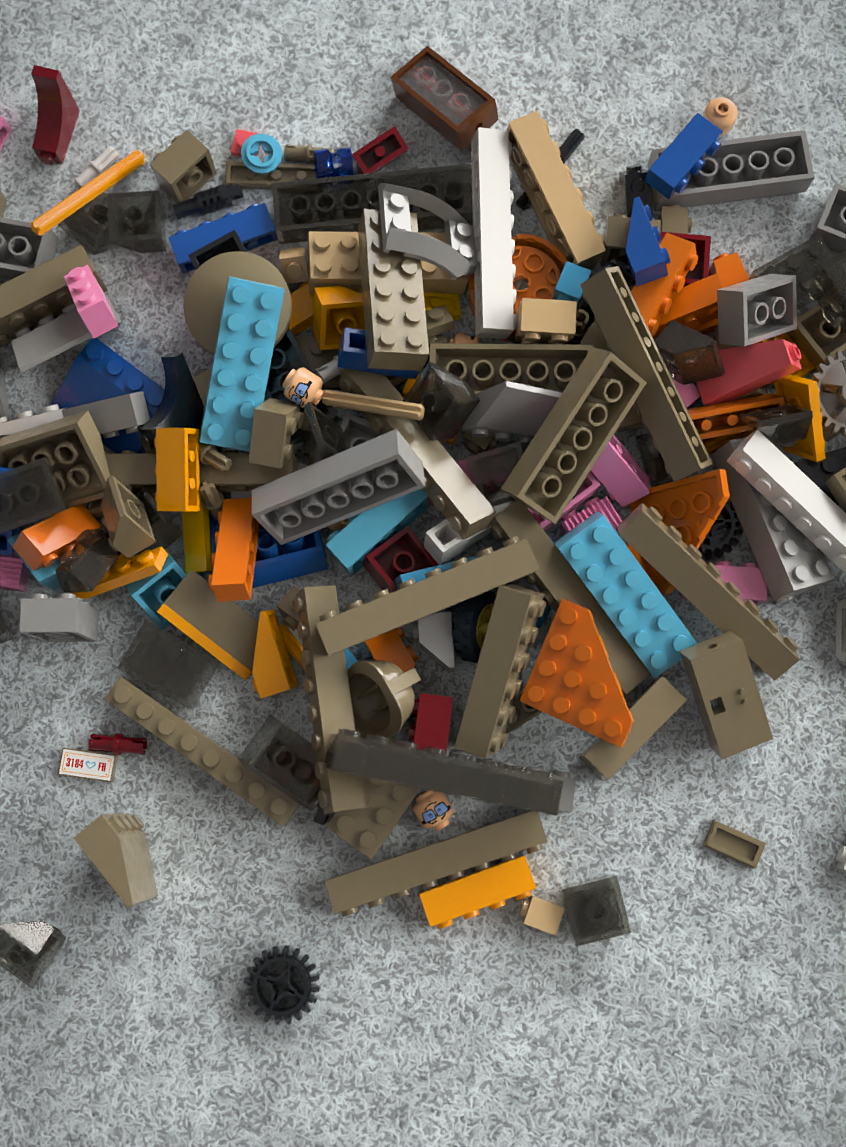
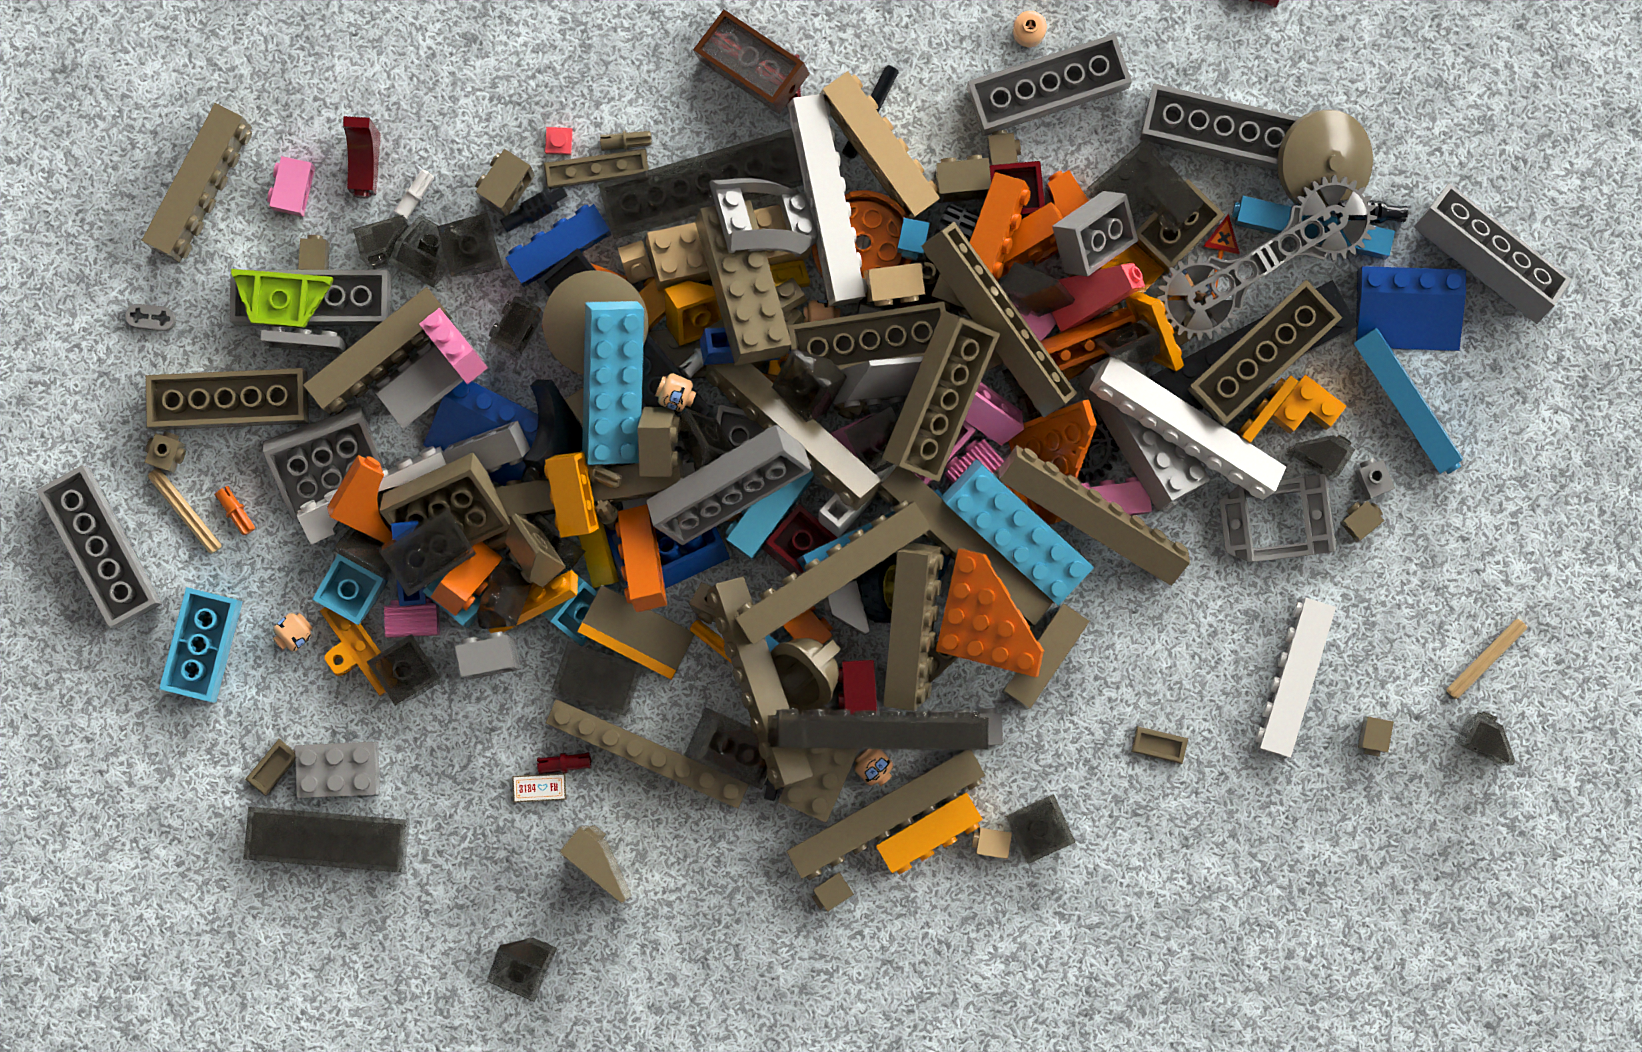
camera: 15 degrees left, 5 degrees up
(46, 192) = (378, 240): none -> clear smoke slope
(87, 193) = (418, 228): light orange axle -> none
(164, 307) = (516, 326): none -> clear smoke slope
(270, 147) = (584, 141): medium azure gear -> none
(272, 662) = (696, 660): light orange slope -> none
(293, 990) = (760, 974): black gear -> none
(324, 162) = (645, 153): clear blue wheel -> none
(364, 934) = (832, 892): none -> dark tan brick
(373, 404) = (745, 397): tan axle -> none
(380, 152) = (697, 130): dark red brick -> none
(635, 186) = (962, 124): black bracket -> none
(643, 251) = (974, 196): blue slope -> none
(684, 156) = (1000, 87): blue brick -> none
(726, 694) = (1127, 608): dark tan brick -> none

